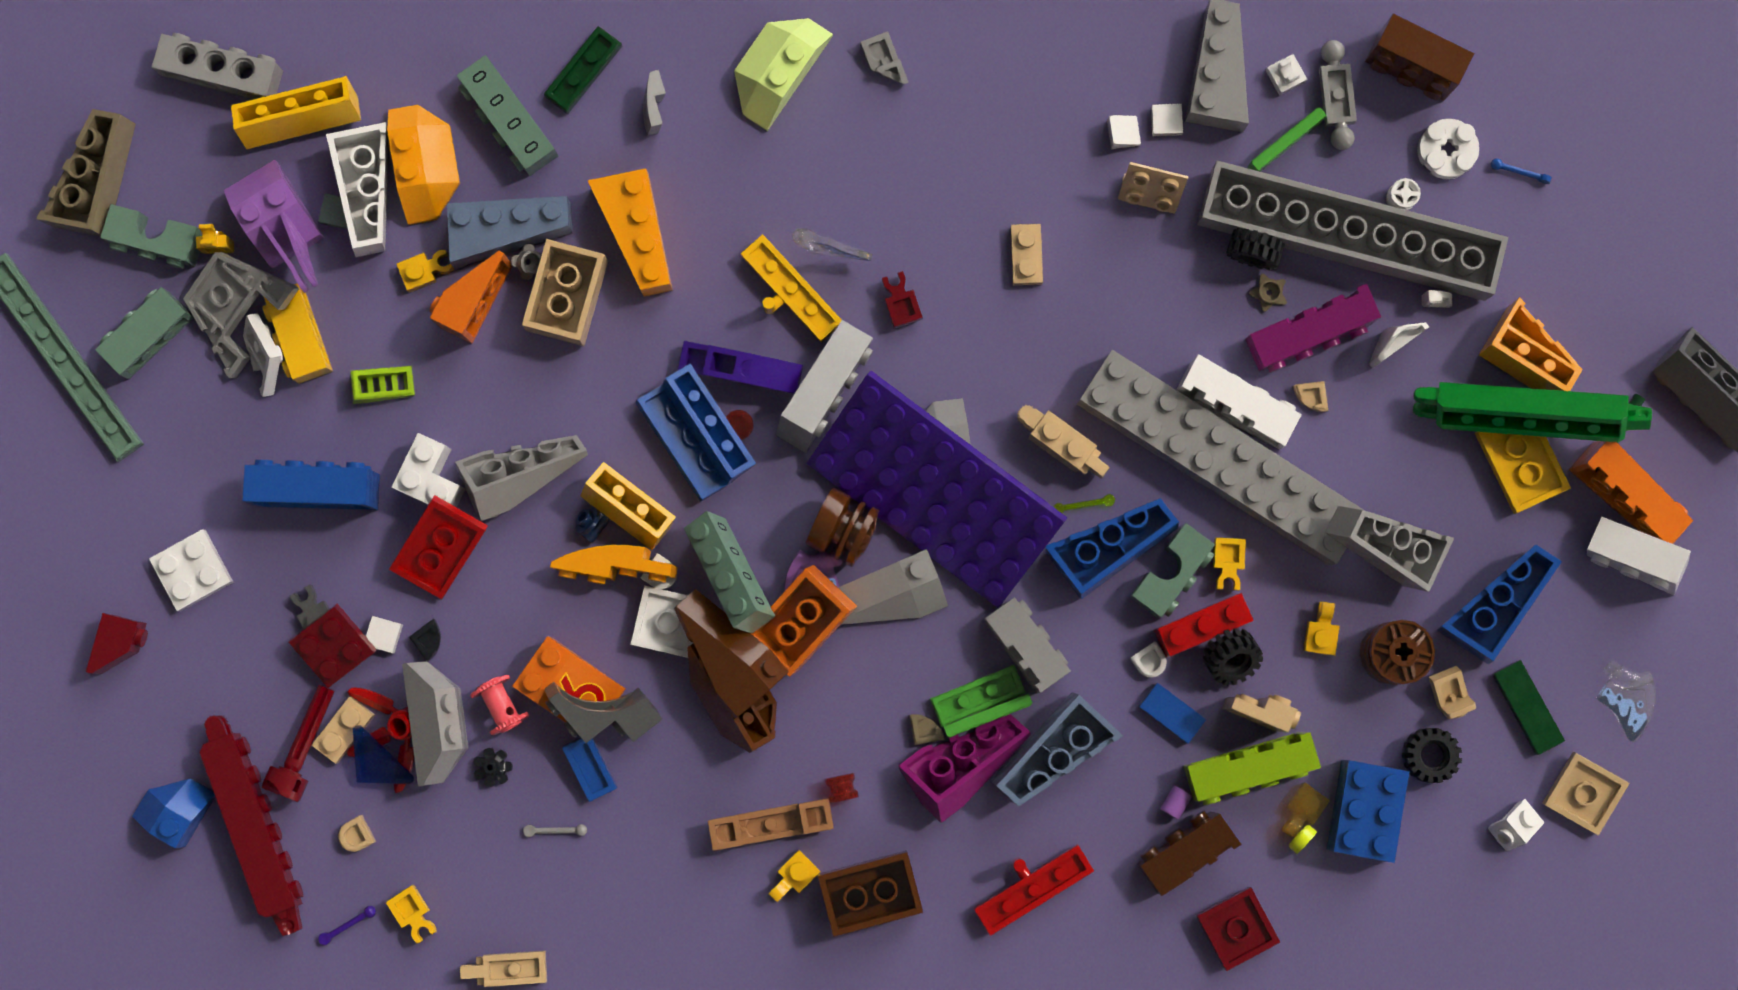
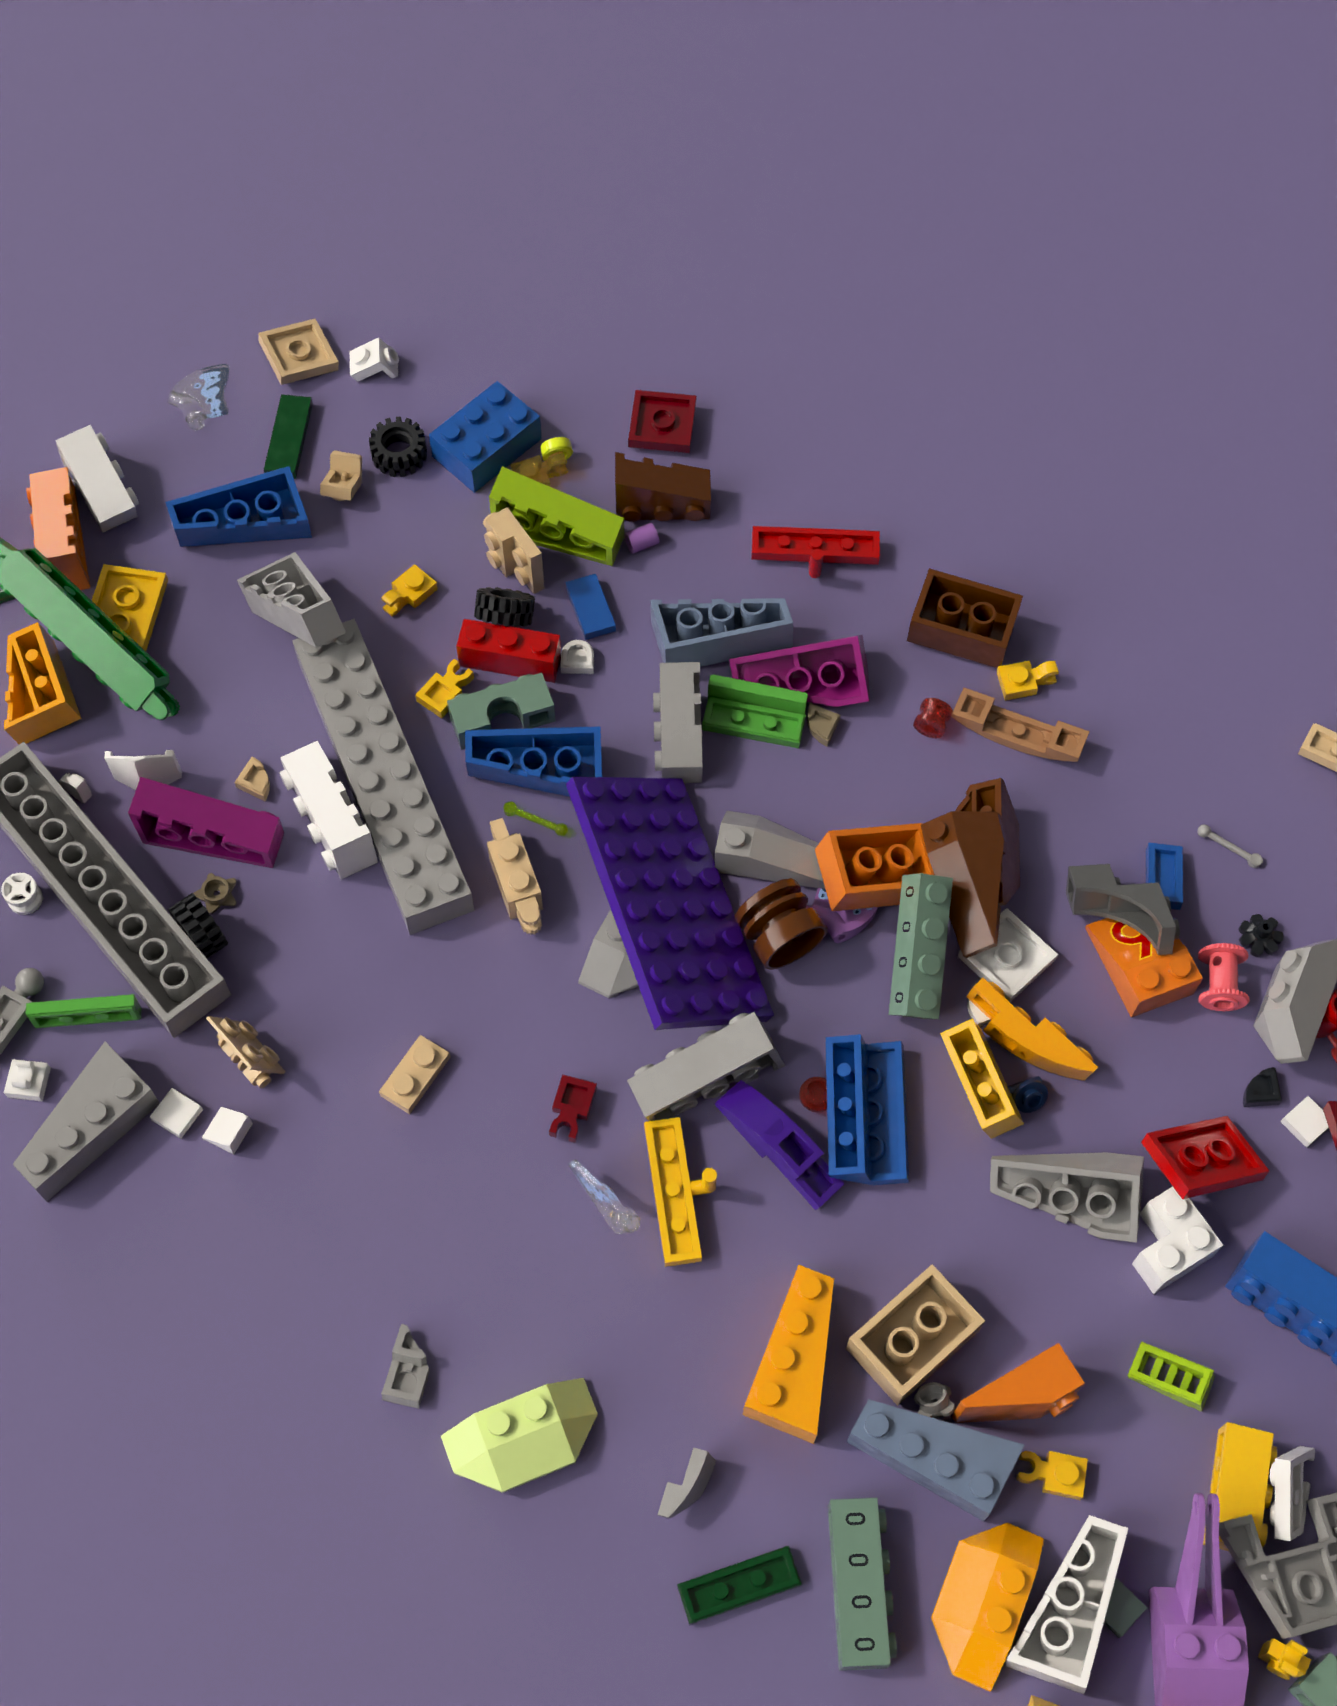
camera: 145 degrees left, 20 degrees down
(1379, 654) = (361, 528): reddish brown wheel -> none

